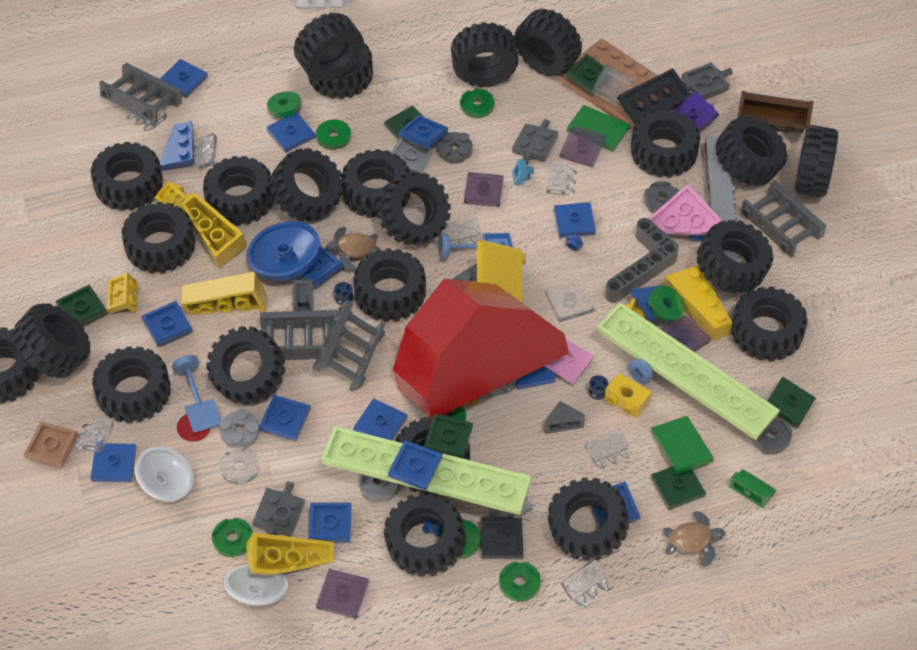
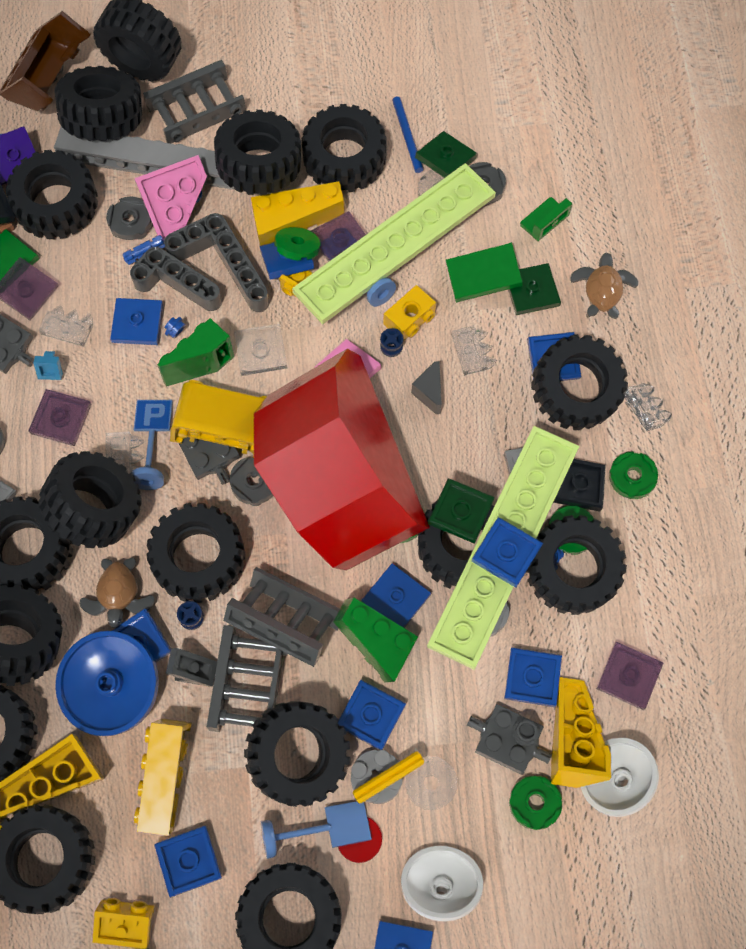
camera: 80 degrees left, 15 degrees up
(237, 430) = (388, 777): none -> yellow axle
(342, 403) = (376, 637): none -> green wedge
(552, 257) = (198, 355): none -> green slope
(623, 224) = (180, 281): none -> dark grey beam
(634, 209) = (131, 256): none -> blue axle
(809, 371) = (407, 133): none -> blue bar

